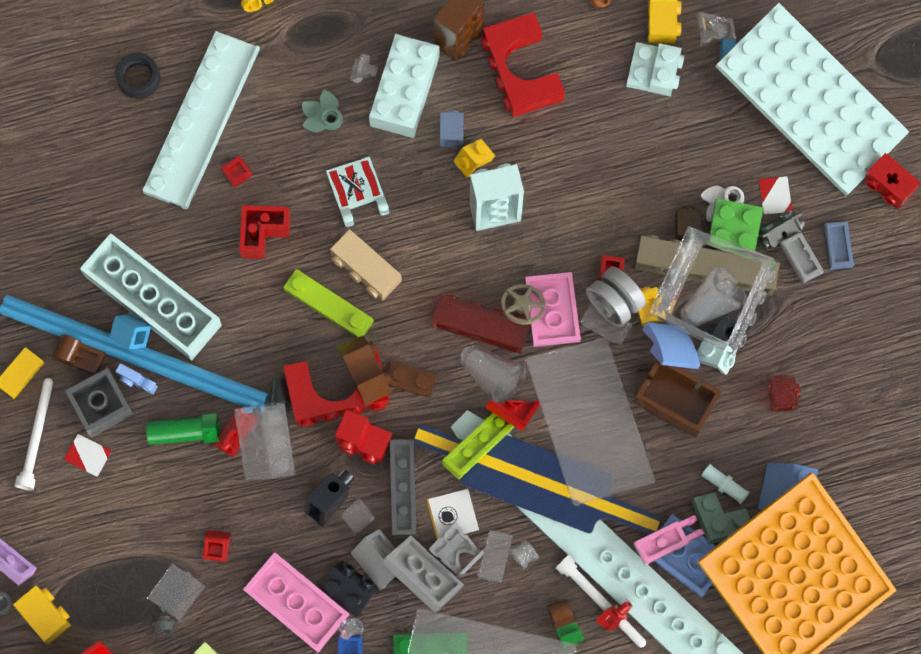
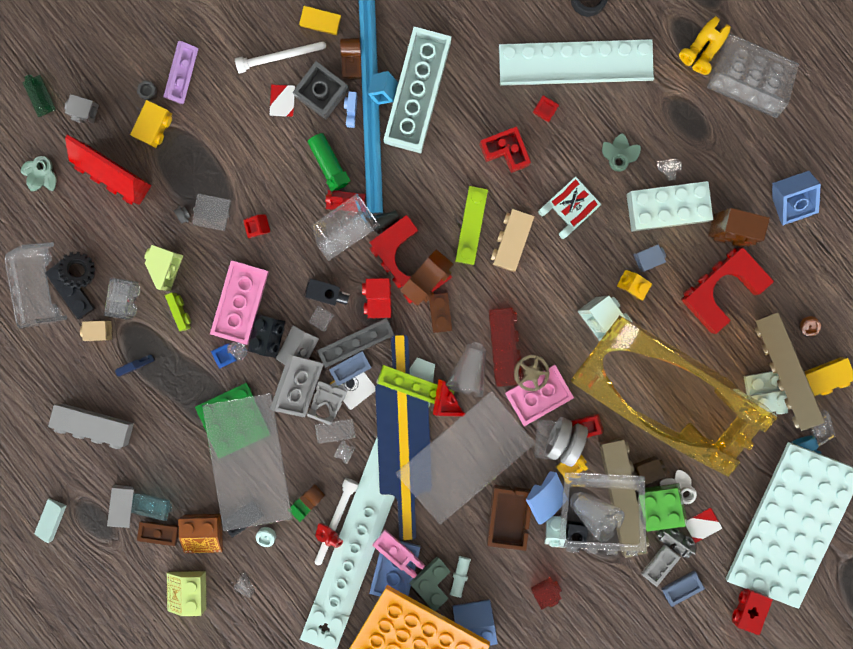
camera: 65 degrees right, 15 degrees up
(430, 508) = (350, 368): none -> sand blue tile
(639, 33) = (790, 372): none -> dark tan brick
(671, 90) = (717, 455): none -> clear yellow windscreen

